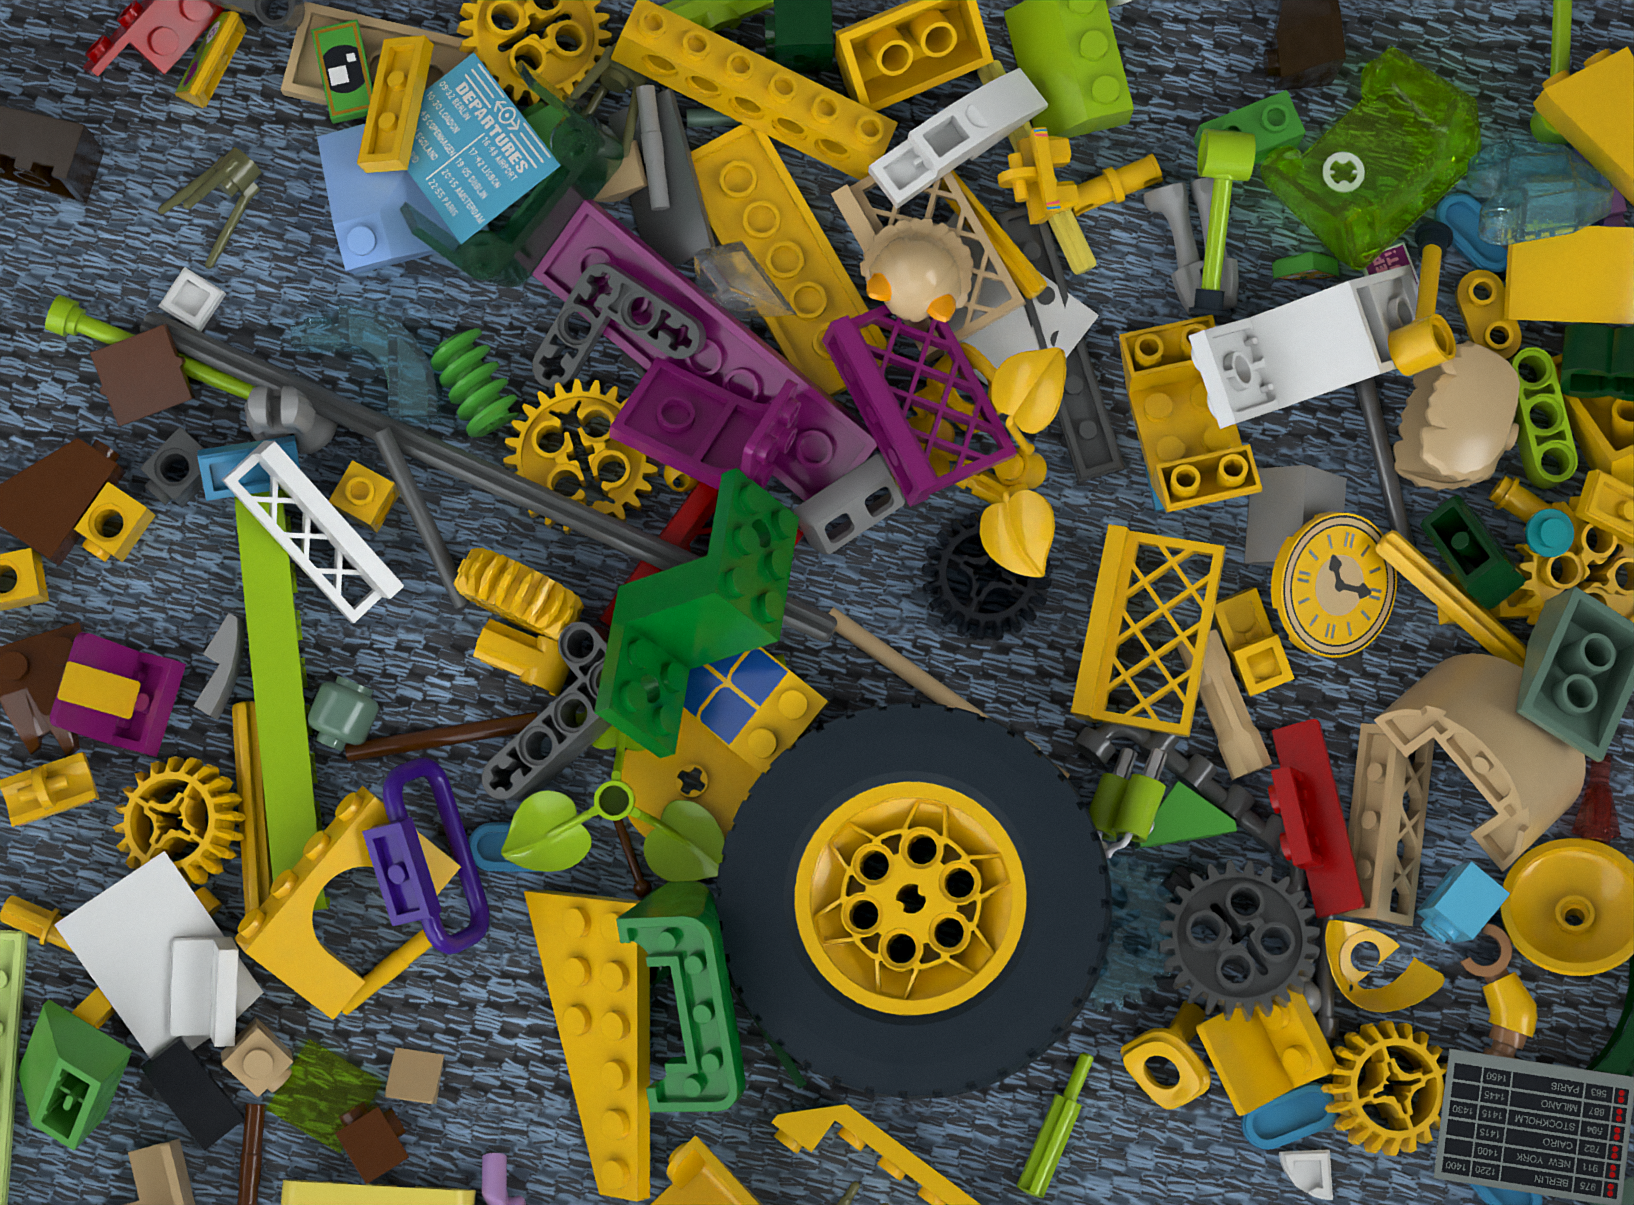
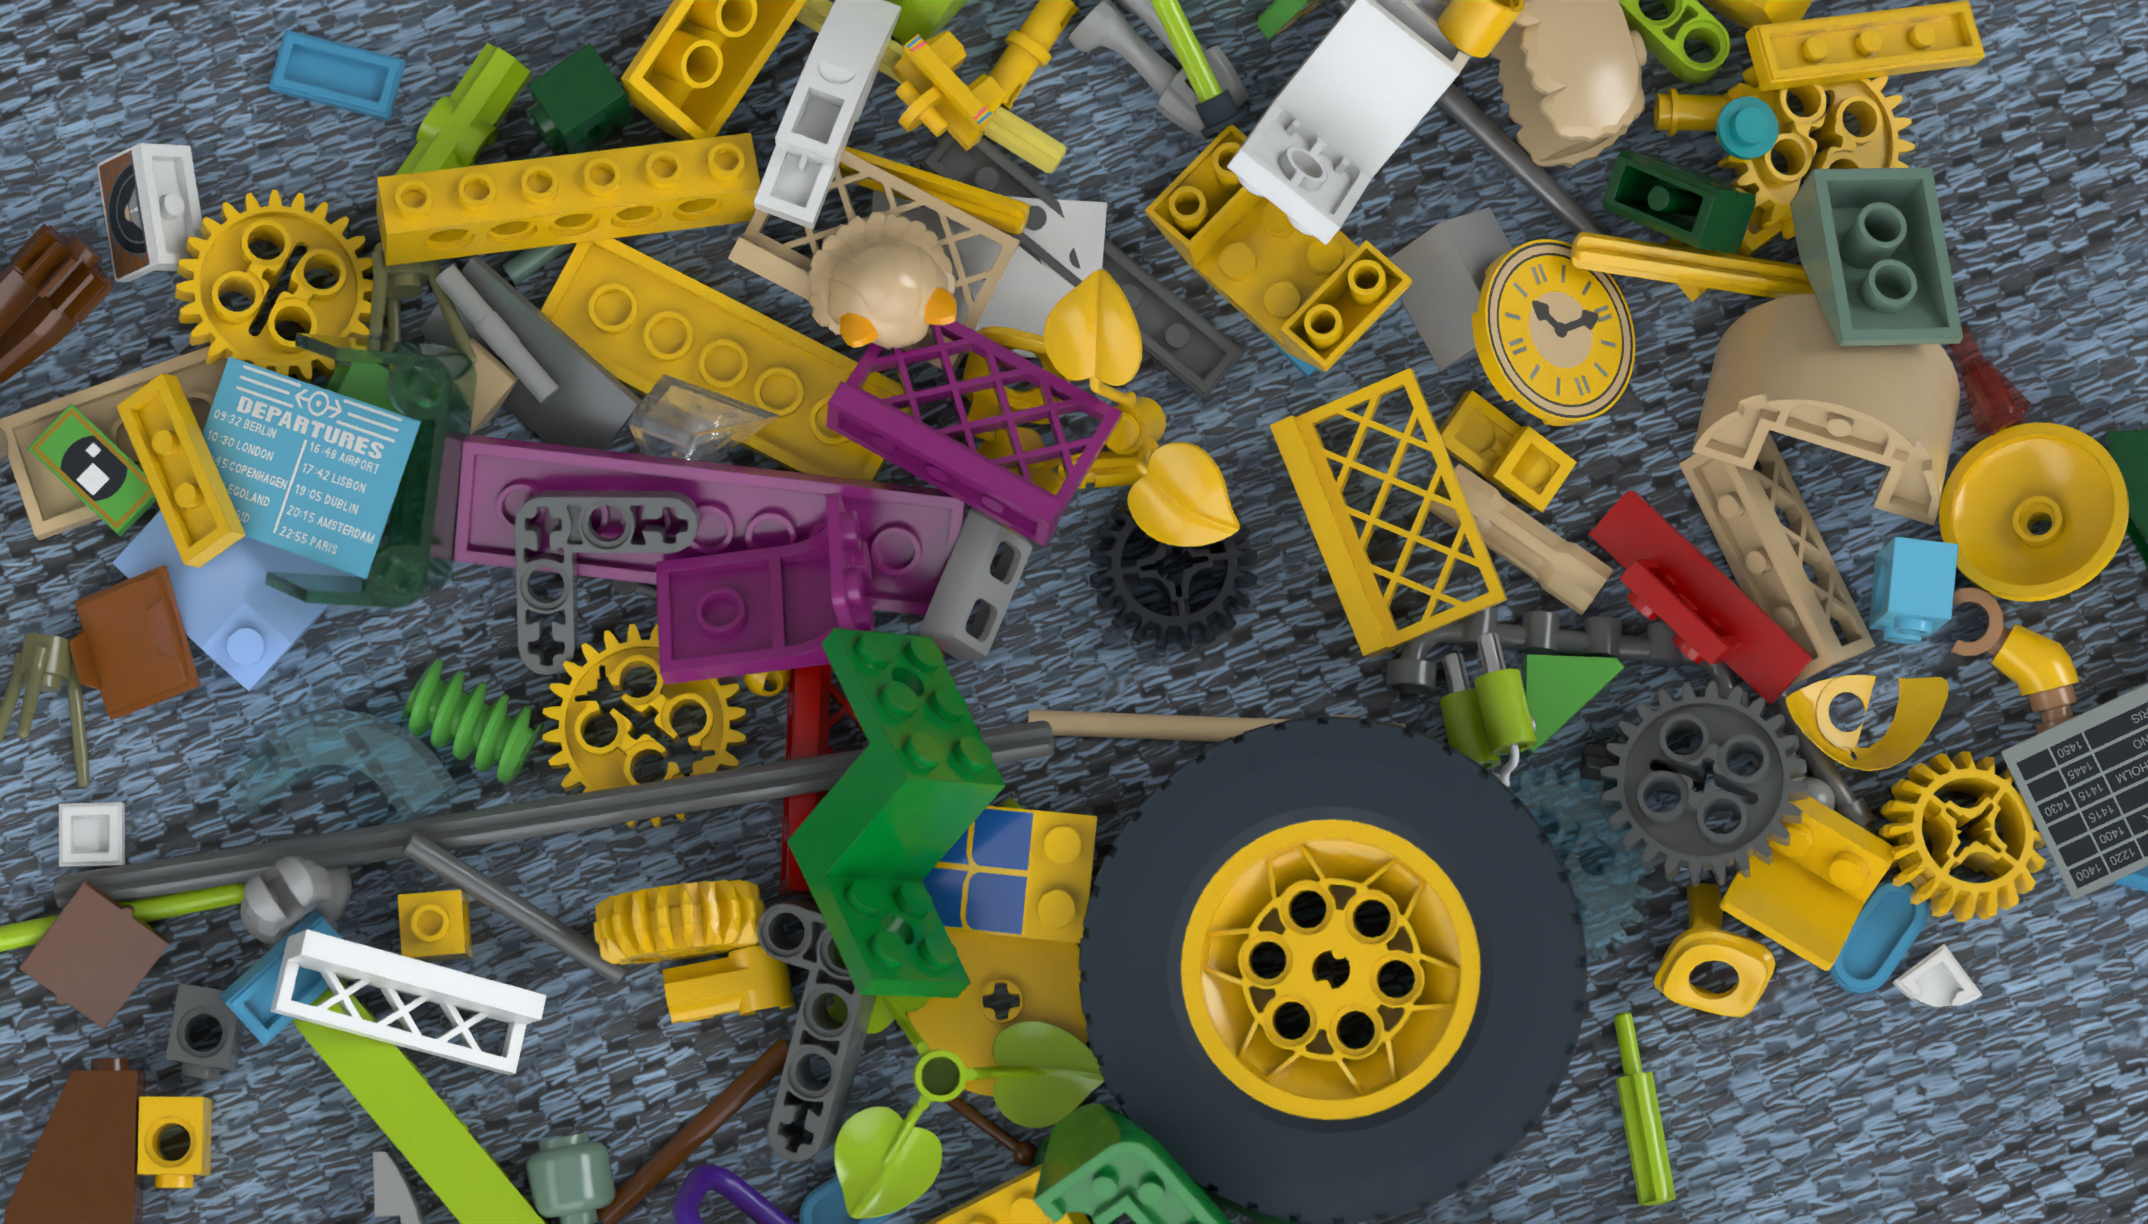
camera: 35 degrees left, 0 degrees up
(295, 196) = (133, 644): none -> dark orange piece

